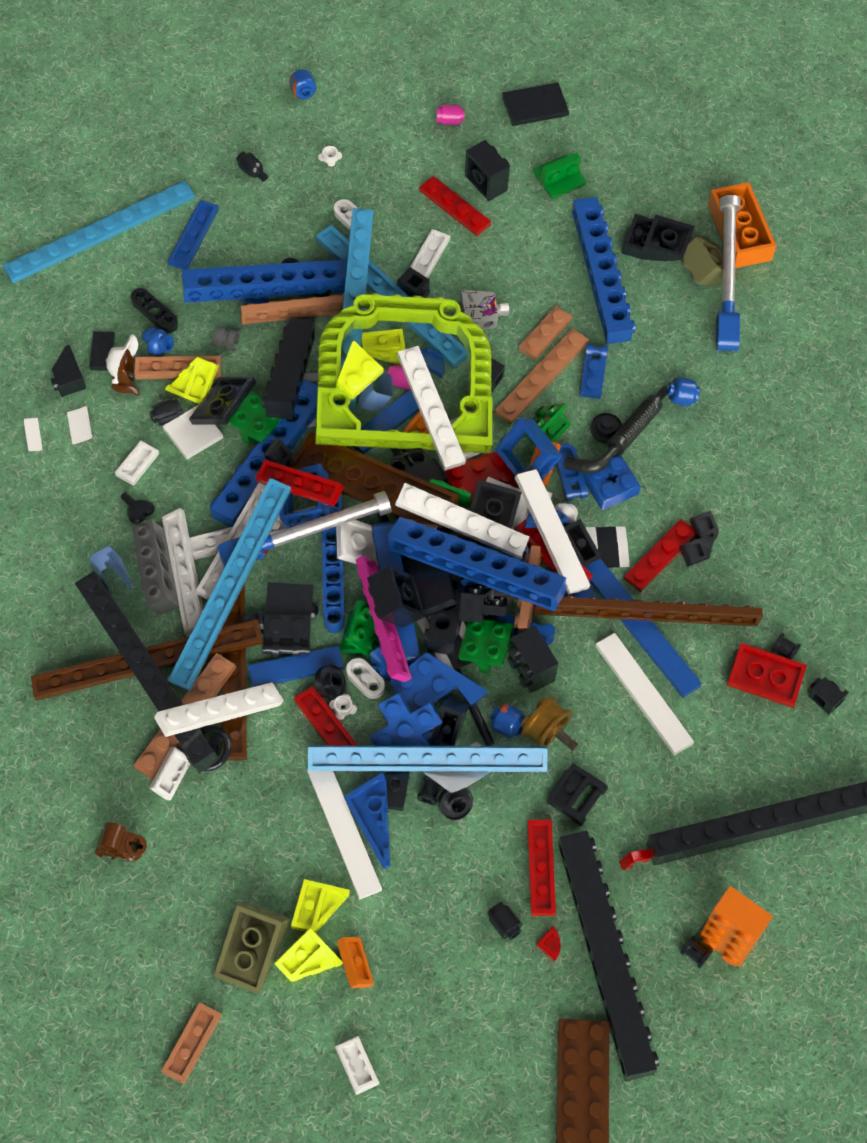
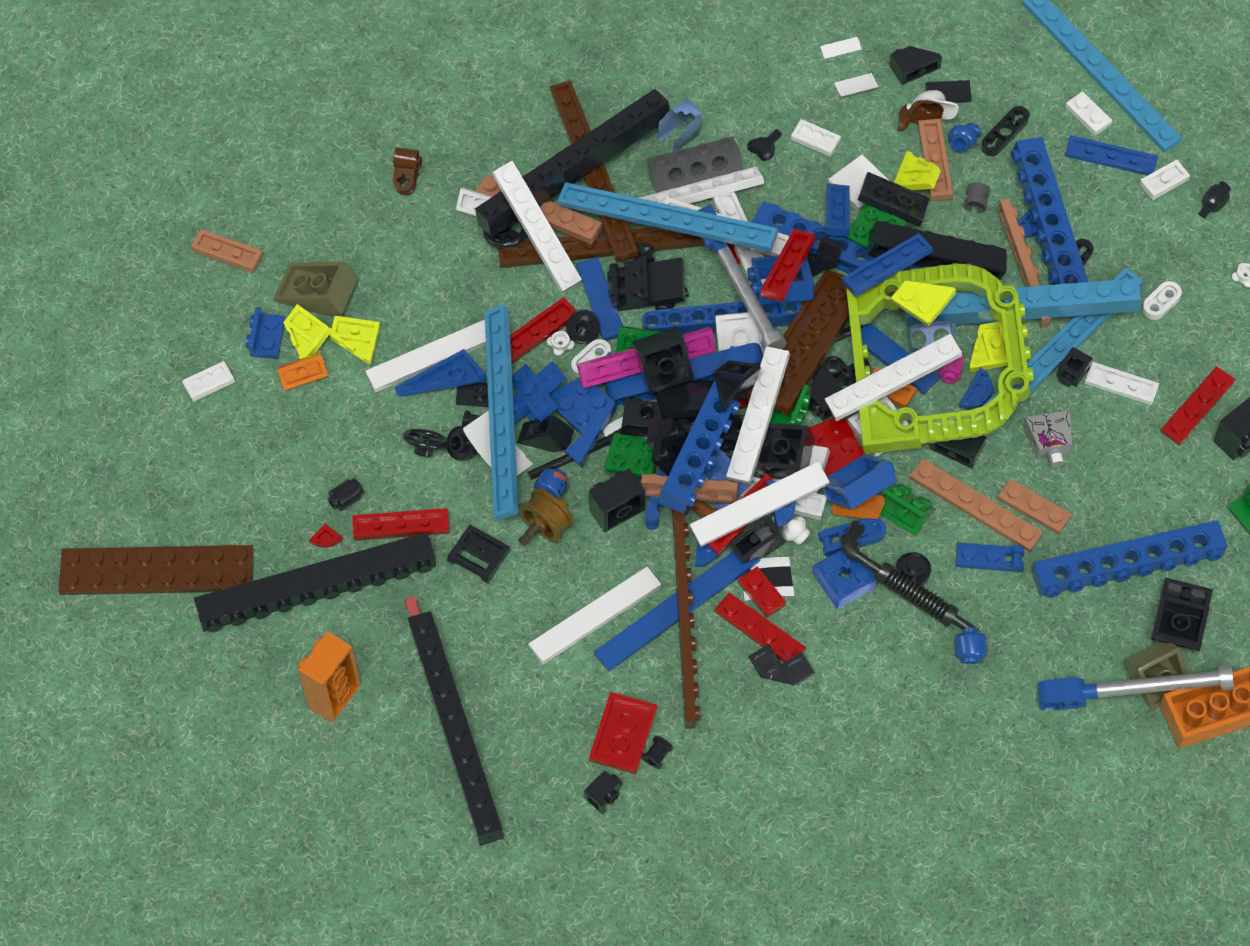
camera: 90 degrees right, 0 degrees up
(145, 246) = (1088, 113): none -> white plate
(165, 411) = (878, 154): black brick -> none
(226, 198) = (1164, 179): none -> white plate
(230, 445) = (837, 210): none -> blue plate
(303, 1001) = (265, 334): none -> blue bracket
(315, 397) = (887, 265): none -> blue tile
(434, 529) = (734, 380): none -> black slope
(452, 838) = (426, 441): none -> black piece
(625, 549) = (762, 592): none -> red plate

